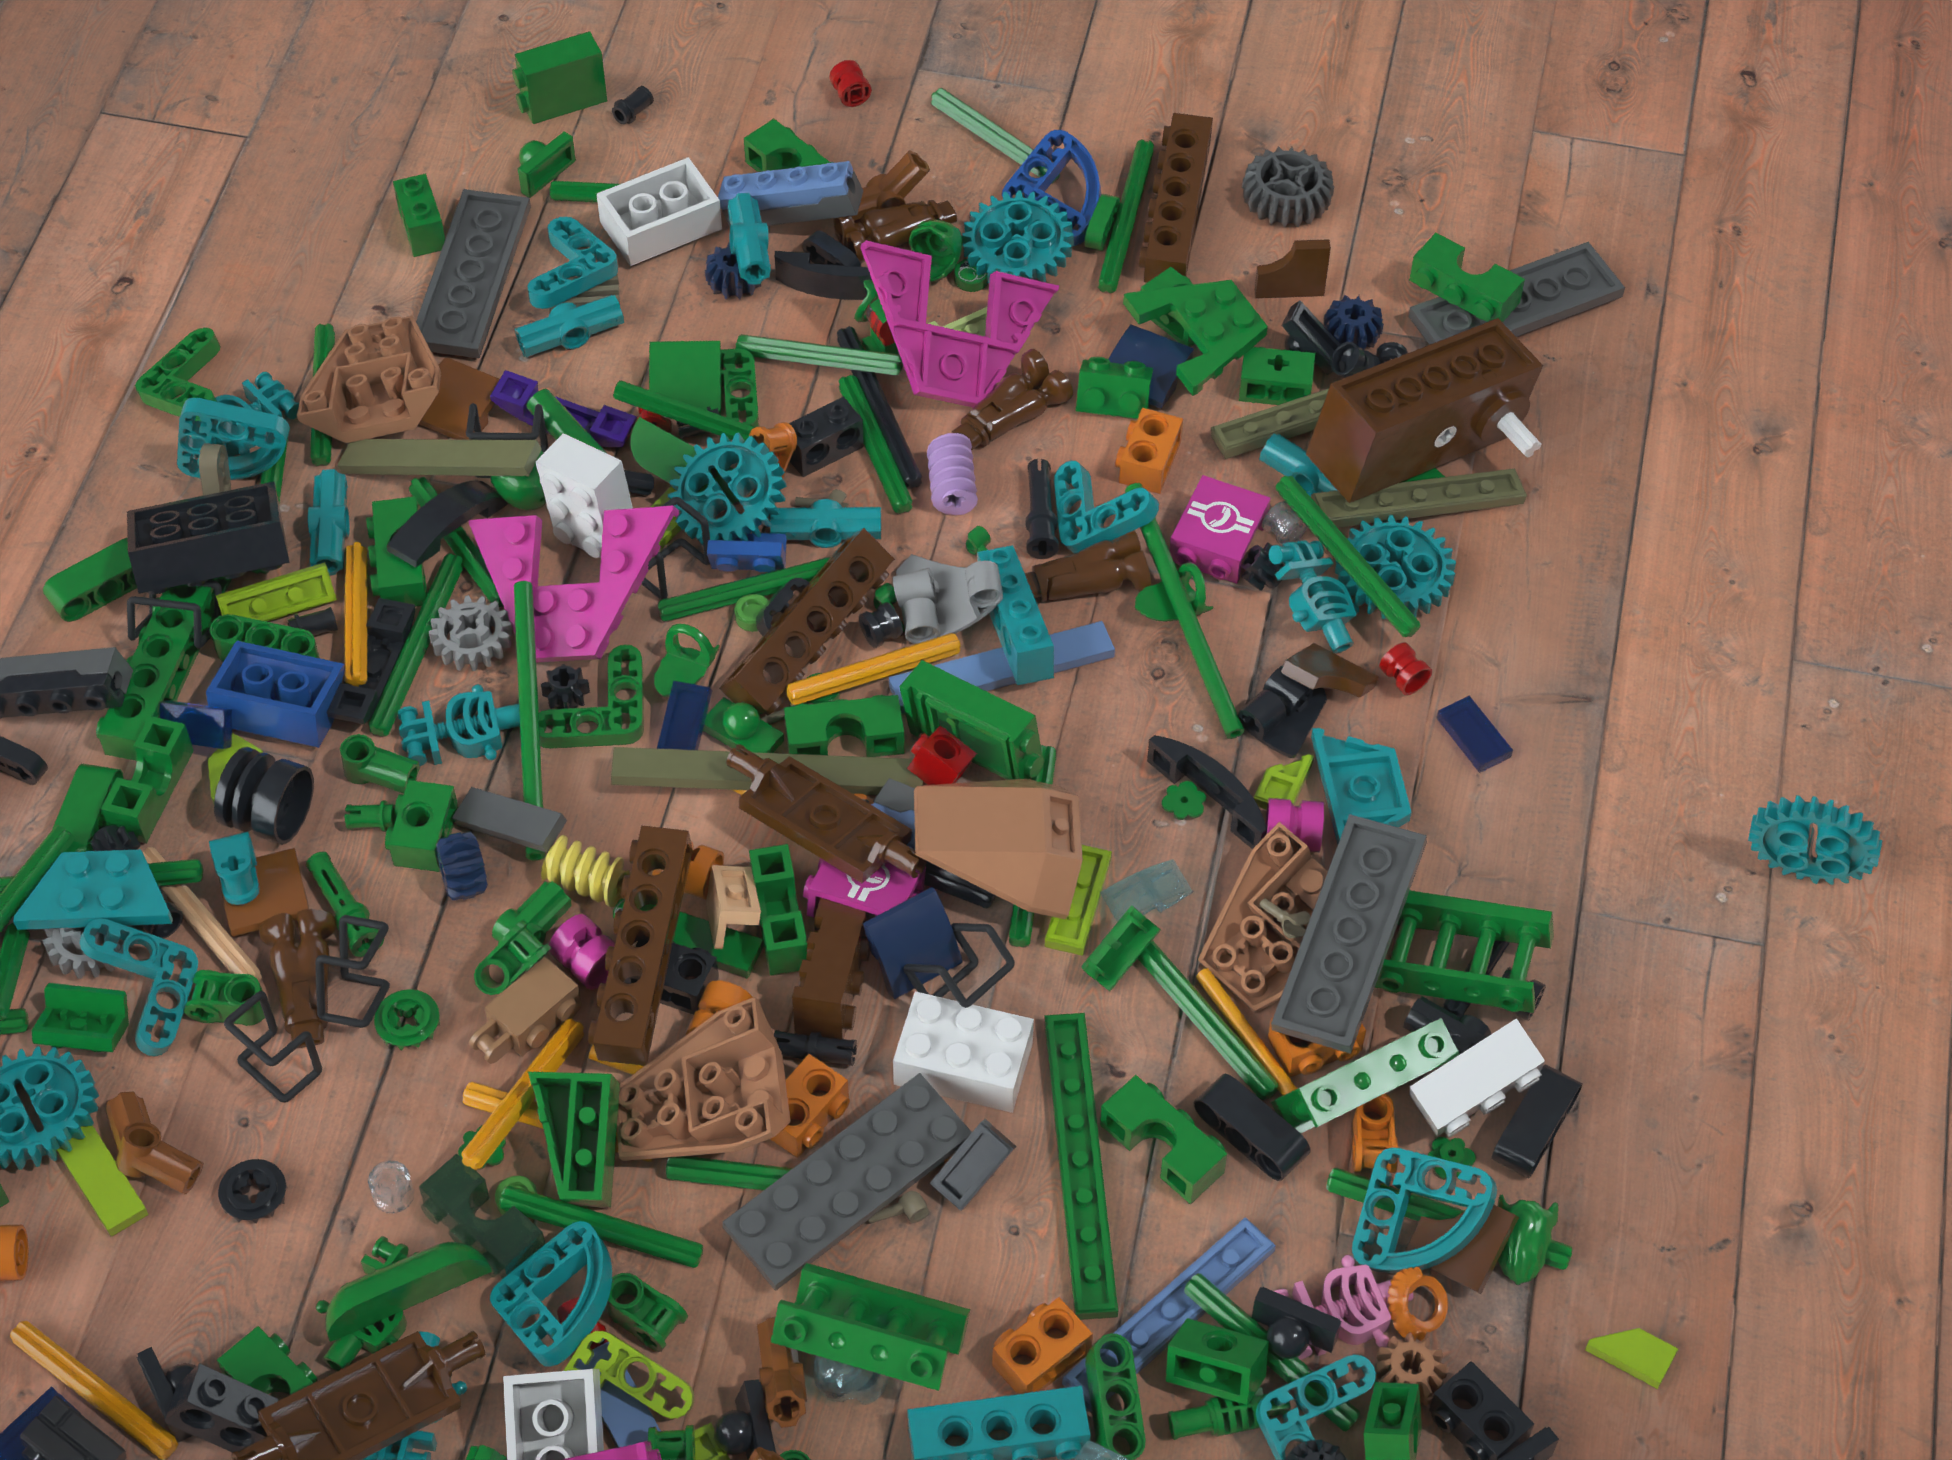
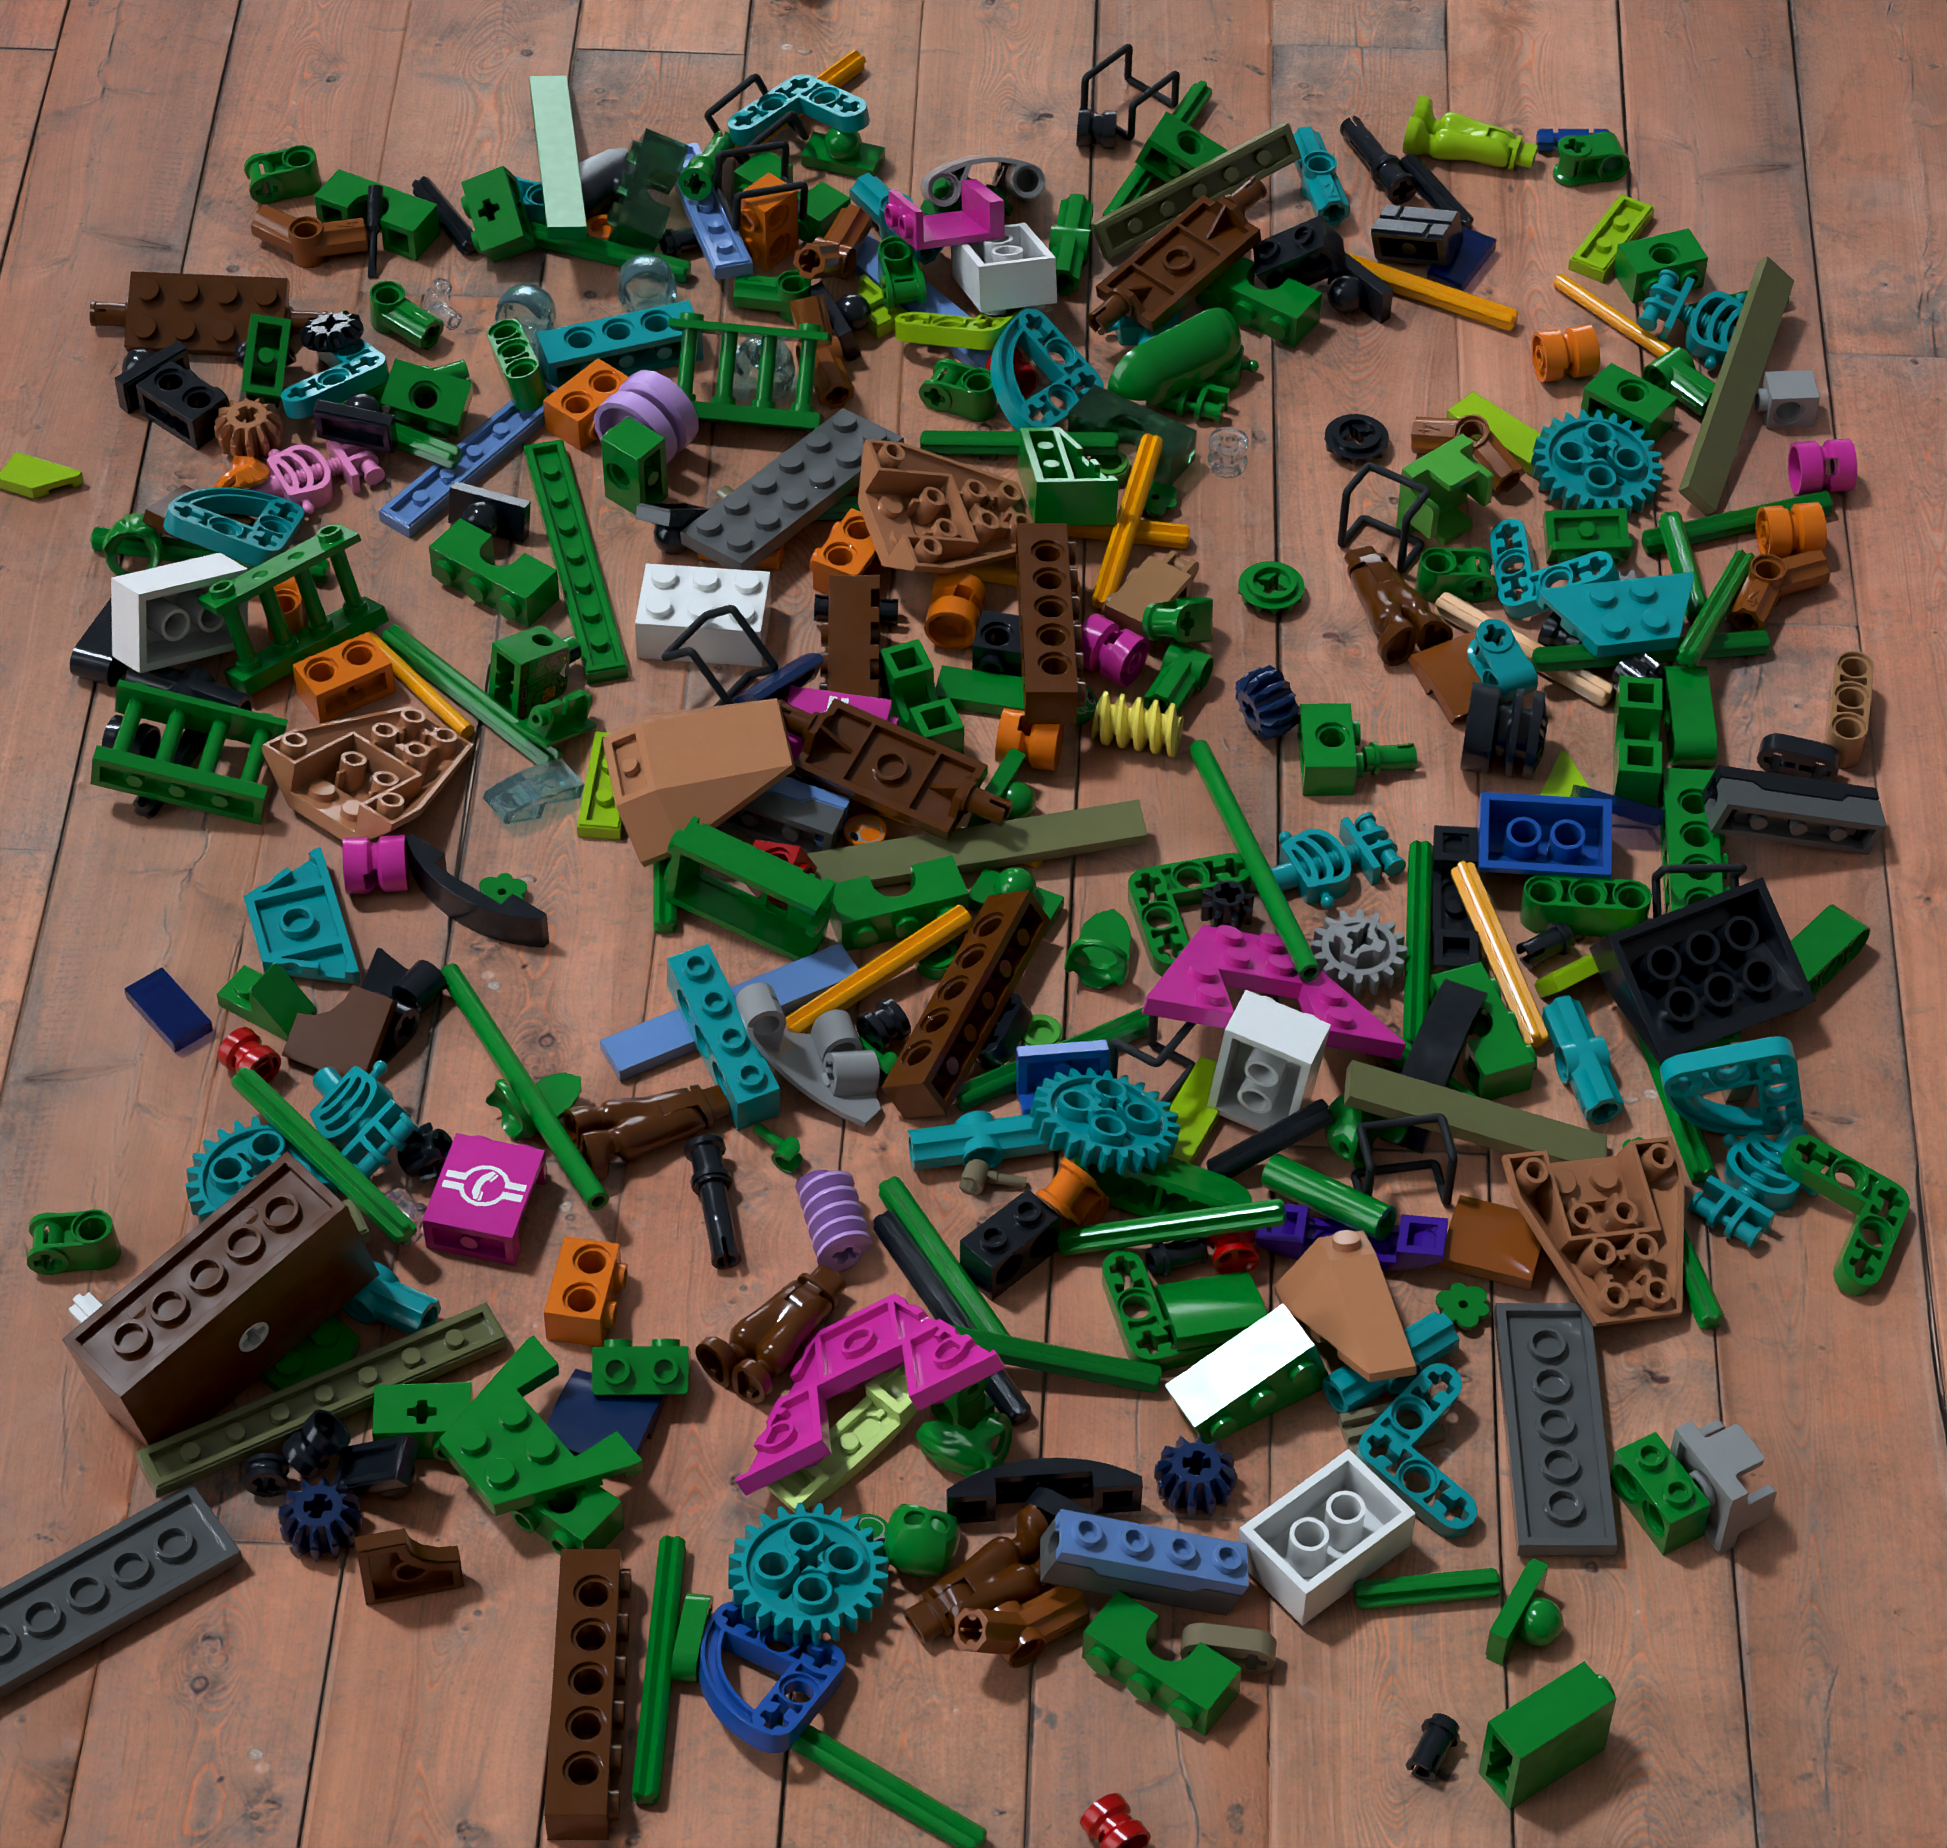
camera: 170 degrees right, 5 degrees down
(203, 1071) = (1451, 476): none -> bright green panel
(324, 871) = (1366, 663): green pin -> none
(345, 964) = (1309, 577): black piece -> none
(376, 764) = (1416, 802): green piece -> none
(378, 180) = (1714, 1462): none -> light grey panel
(498, 362) = (1463, 1305): none -> green plant
(509, 819) = (1235, 757): dark grey tile -> none
(589, 339) = (1347, 1302): none -> nougat wedge
(673, 314) = (1249, 1377): none -> wedge
(684, 716) = (1080, 887): clear blue tile -> none
(724, 822) = (1005, 785): none -> green tile
(731, 900) = (968, 687): light nougat panel -> none
(734, 162) = (1246, 1647): none -> dark tan beam
(749, 238) = (1179, 1468): teal piece -> none
(988, 1279) = (655, 404): none -> lavender wheel
(1007, 1225) = (634, 465): none -> green brick
(1131, 509) = (655, 1169): teal beam -> none
(1136, 1000) = (530, 669): none -> green torso
(1165, 1209) = (490, 511): none -> black tile
(1252, 1127) = (409, 595): black beam -> none
(1283, 781) = (391, 926): lime tile -> none
(1288, 186) = (420, 1762): dark grey gear -> none
(1291, 923) = (370, 745): dark tan hand -> none
(1349, 933) = (309, 710): dark grey plate -> none
(1386, 724) = (266, 999): none -> green slope
(1484, 295) = (128, 1551): green arch -> none
(1541, 539) = (74, 1242): none -> green piece

